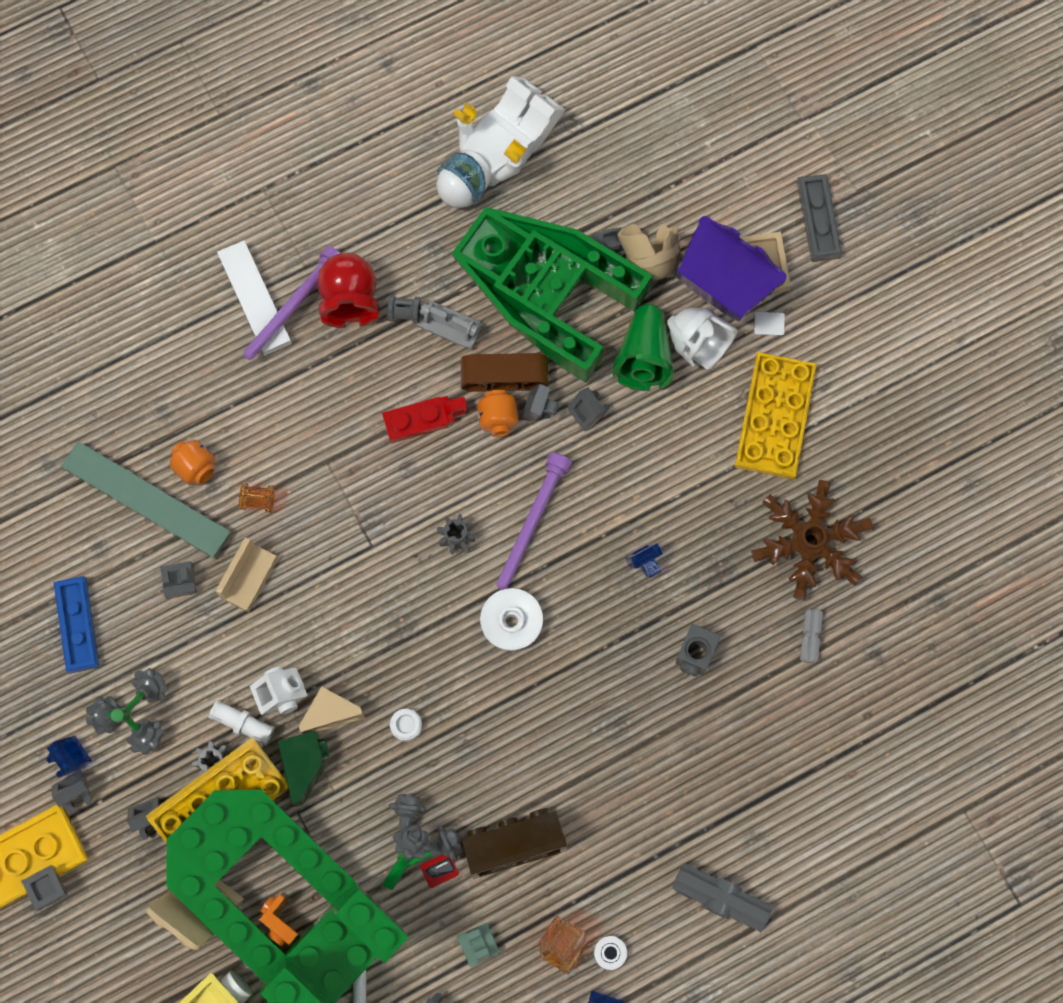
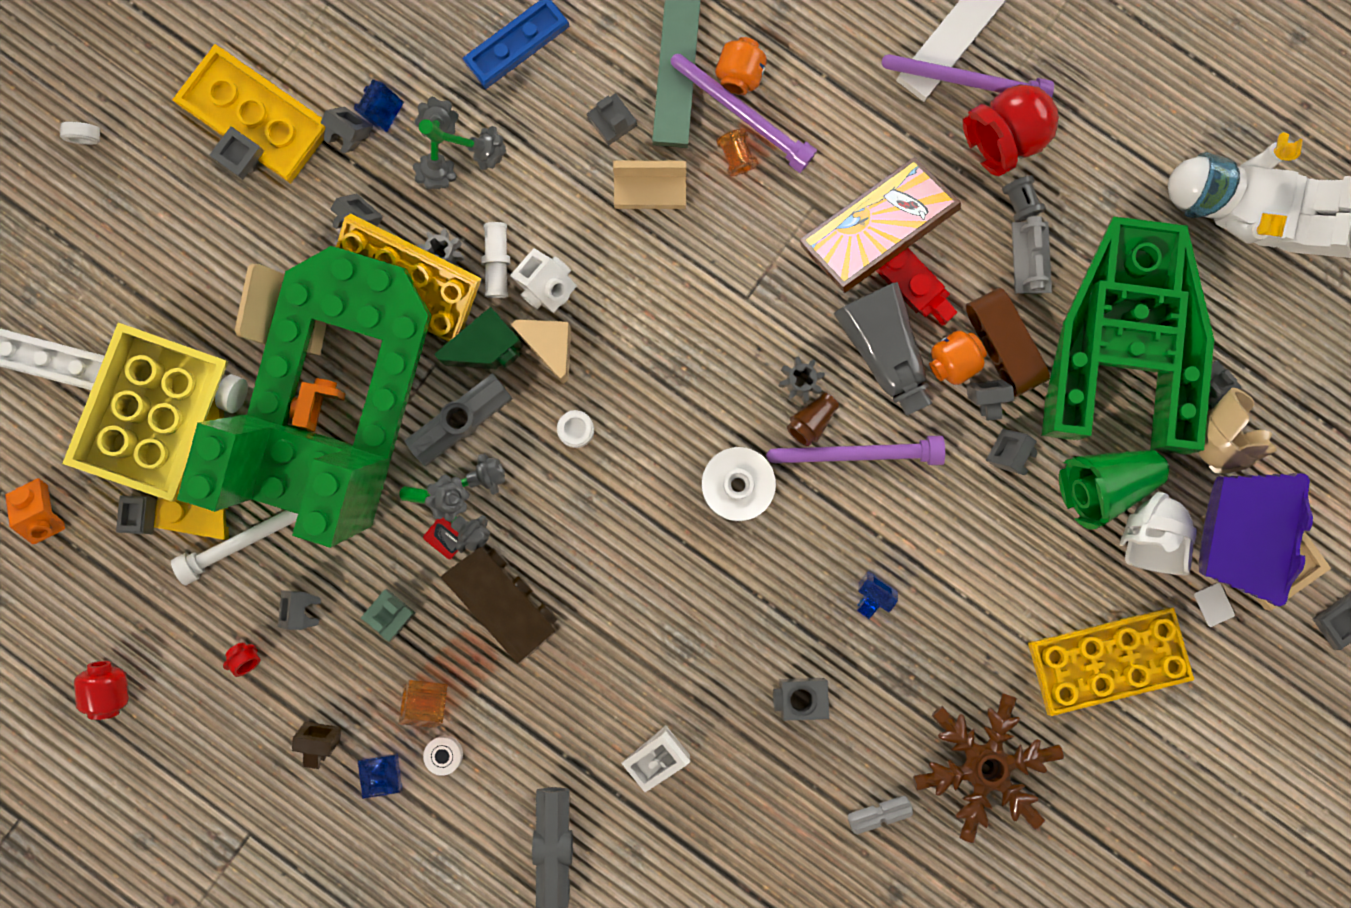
camera: 60 degrees right, 10 degrees up
(281, 453) = (797, 152): none -> medium lavender piece
(357, 831) = (438, 433): none -> dark grey piece
(368, 420) = (880, 224): none -> tile
(456, 458) = (885, 340): none -> dark grey piece
(490, 541) = (811, 421): none -> reddish brown cone
(691, 783) = (656, 759): none -> white slope

